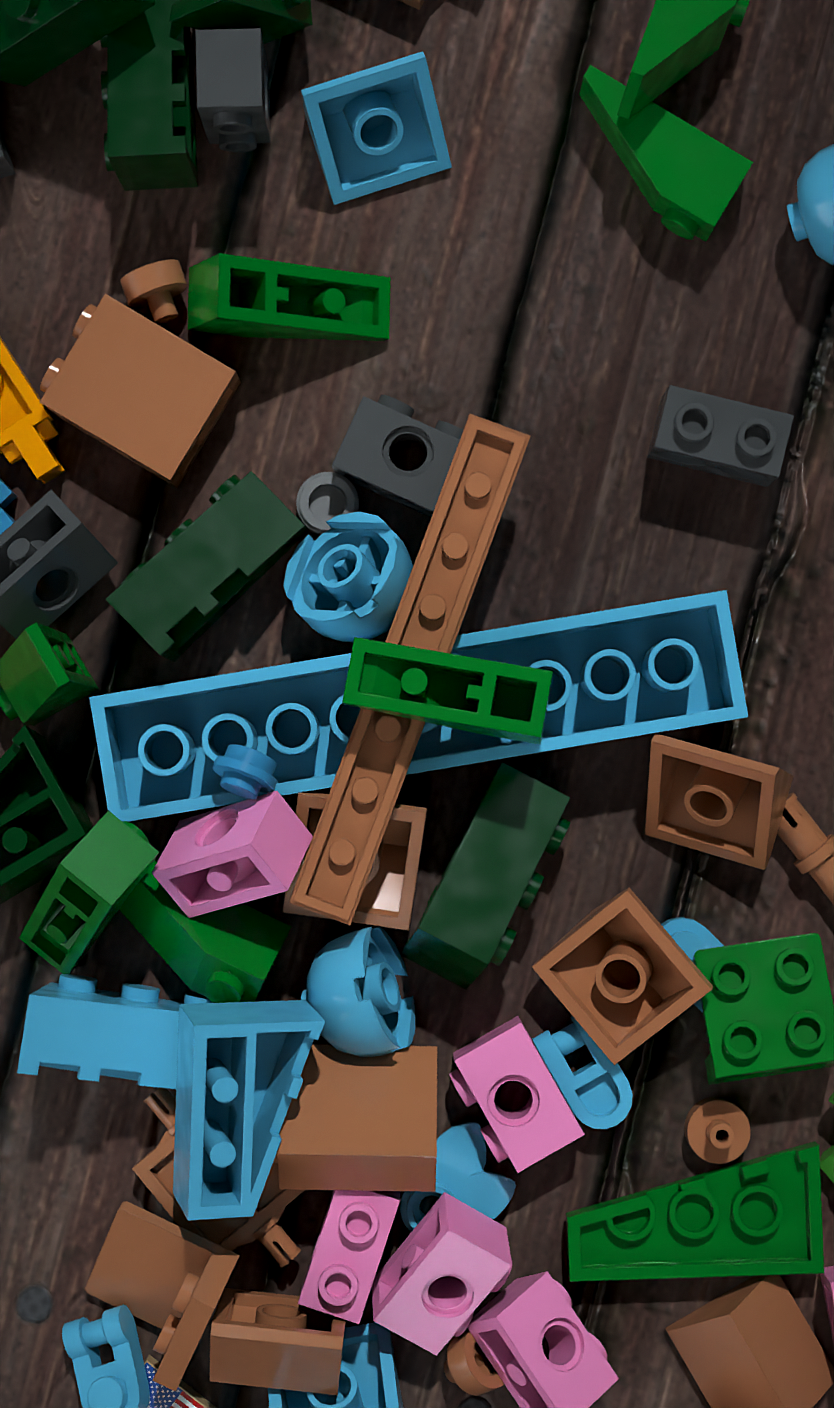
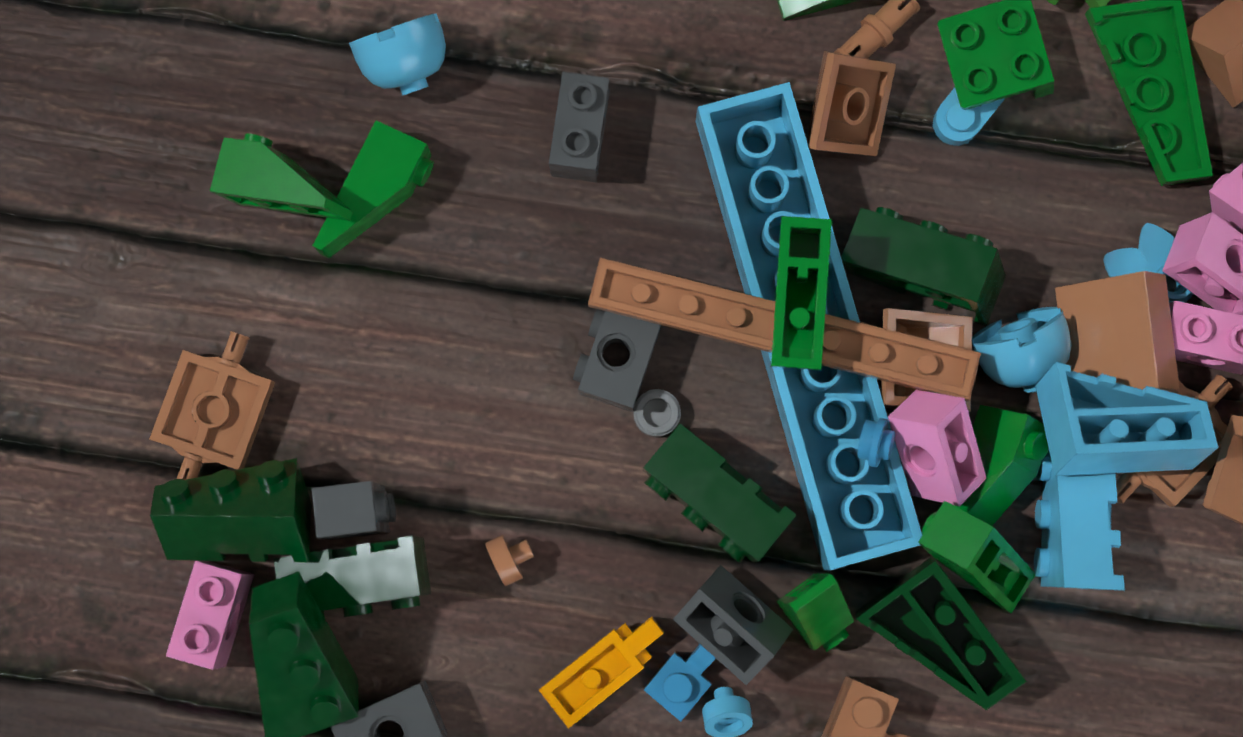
camera: 95 degrees left, 5 degrees down
(138, 389) = (586, 563): nougat brick -> none
(286, 300) = (508, 458): green slope -> none
(349, 577) = (715, 386): medium azure cylinder -> none
(376, 128) = (372, 402): medium azure slope -> none
(542, 1123) = (1102, 209): bright pink brick -> none
(596, 1092) = (1068, 169): medium azure plate -> none
(621, 975) = (985, 158): nougat slope -> none
(707, 1119) = (1086, 83): nougat tile -> none

